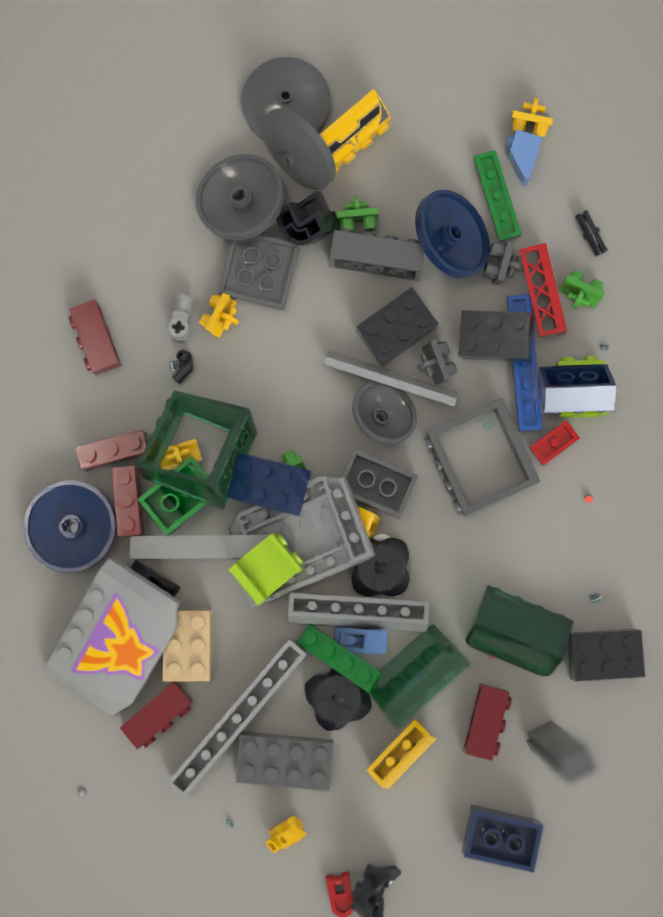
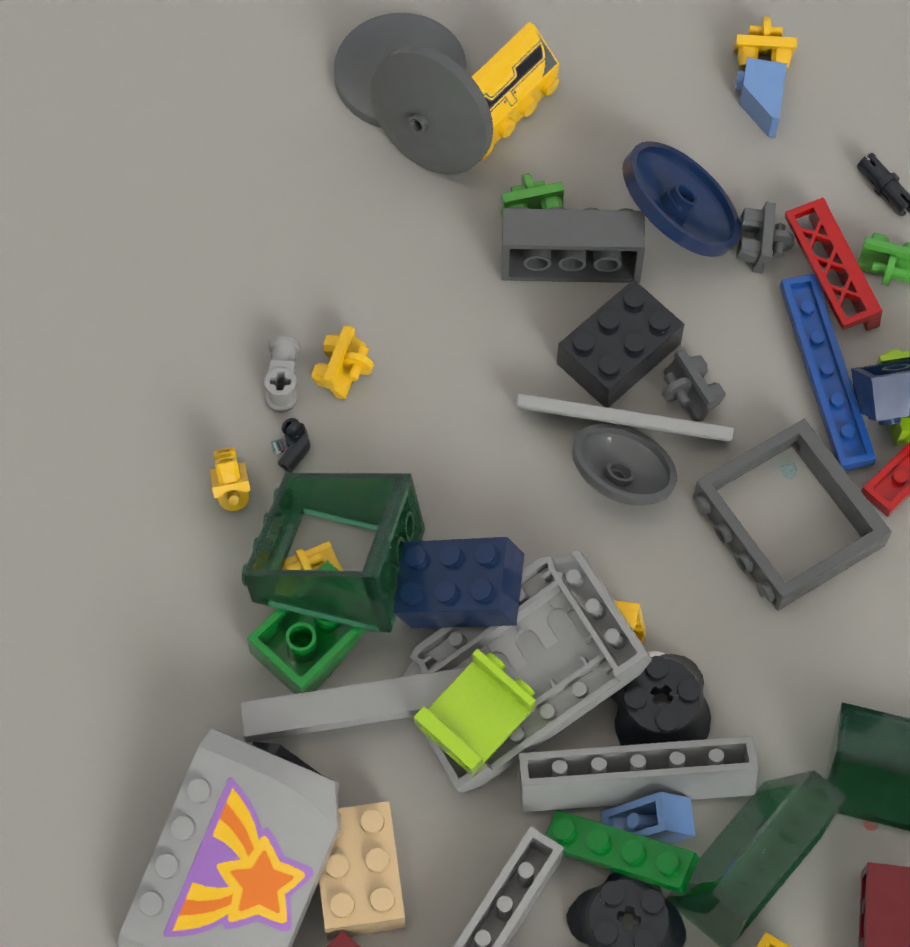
camera: 10 degrees left, 20 degrees down
(69, 526) = (138, 703): dark blue dish -> none
(94, 337) = (148, 419): dark red brick -> none
(112, 450) = (194, 578): brick -> none
(127, 507) = (228, 651): brick -> none
(139, 386) = (230, 480): none -> yellow hips
(240, 197) = (351, 195): dark grey dish -> none
(260, 271) = (395, 292): dark grey plate -> none
(307, 220) = (457, 214): black brick -> none
(379, 483) = (639, 566): dark grey brick -> none
(496, 336) = (775, 332): black brick -> none
(497, 196) = (735, 151): green plate -> none

